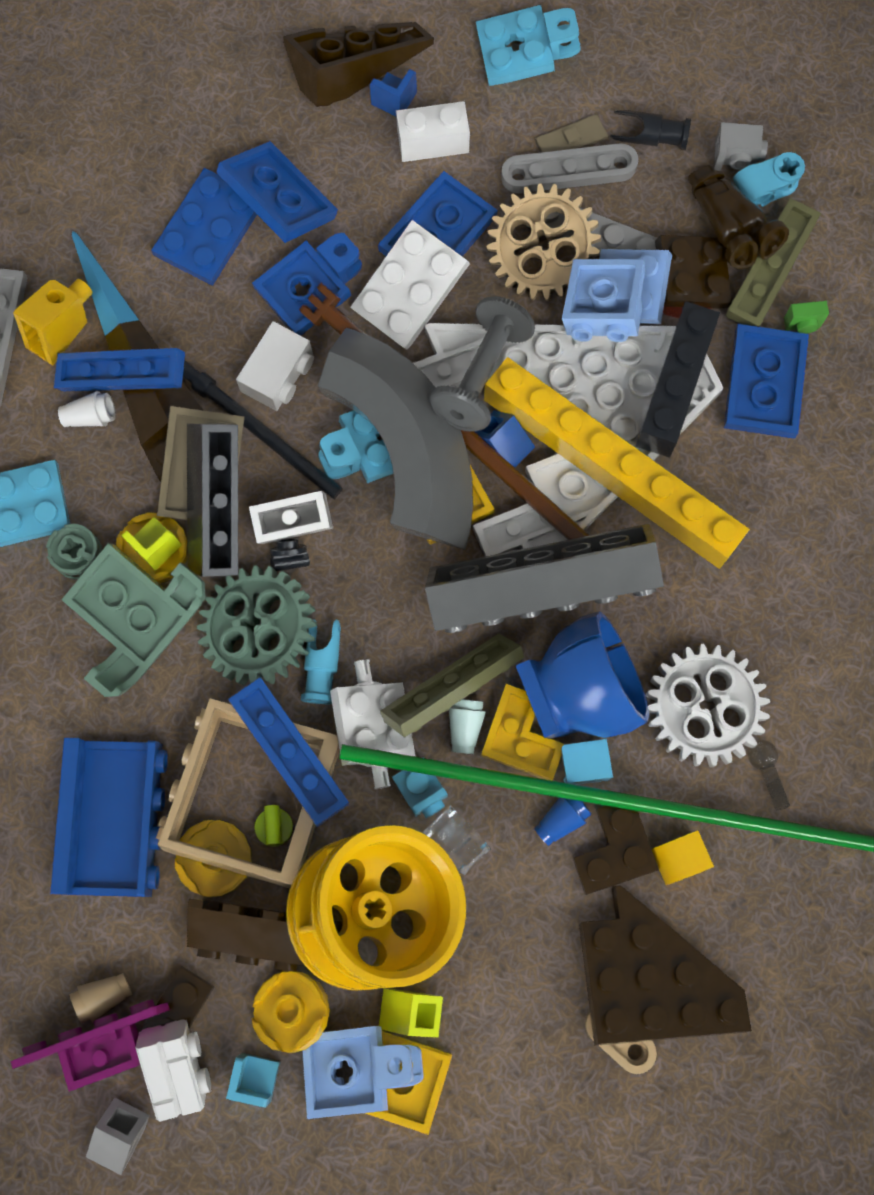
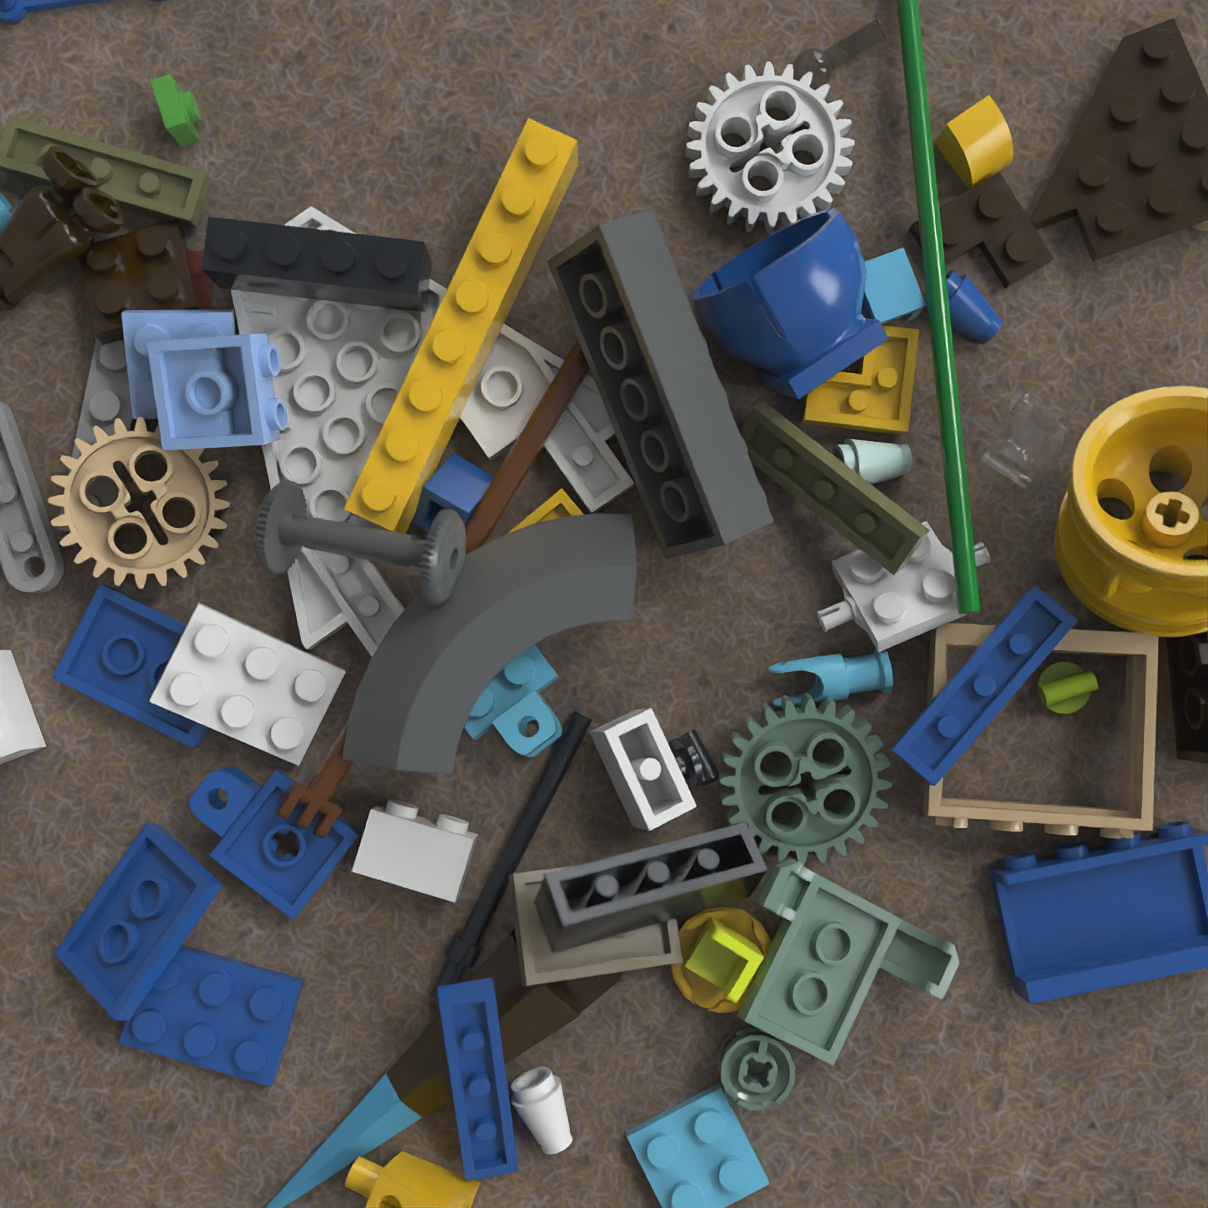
camera: 105 degrees left, 10 degrees up
(197, 875) = (1098, 757): yellow tile -> none
(421, 792) = (986, 497): medium azure bracket -> none
(766, 381) = (285, 151): blue plate -> none

